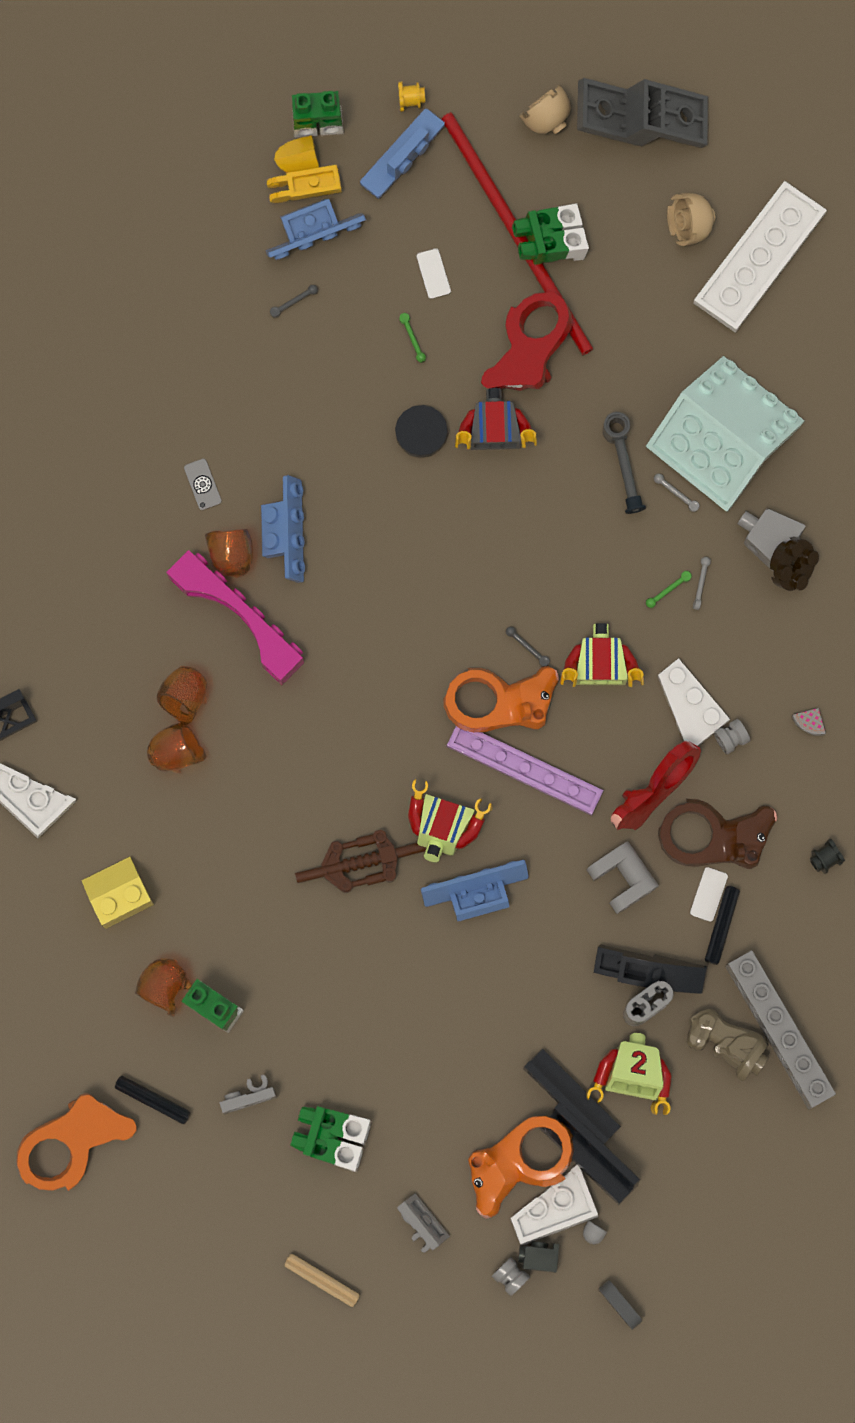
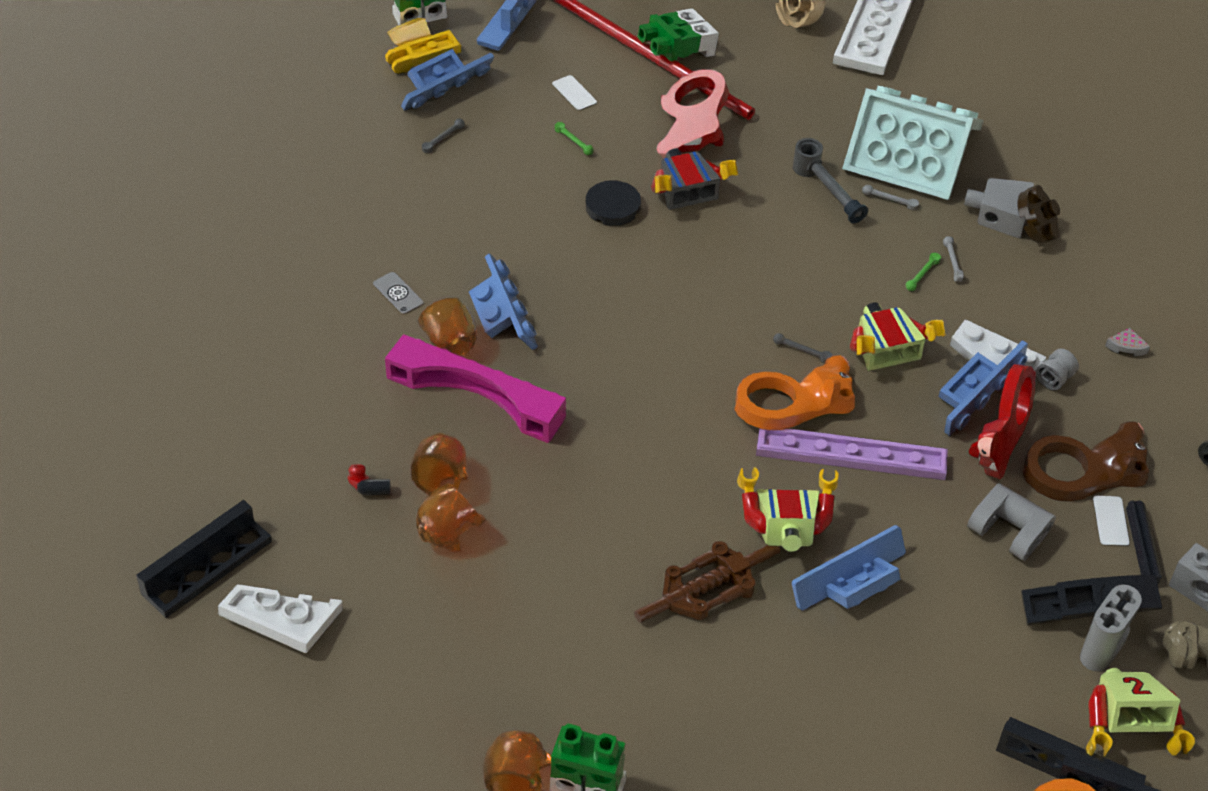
camera: 20 degrees left, 30 degrees down
(117, 893) = (427, 686): light yellow slope -> none
(121, 689) = (366, 485): none -> black arm
(653, 732) = (975, 383): none -> medium blue bracket

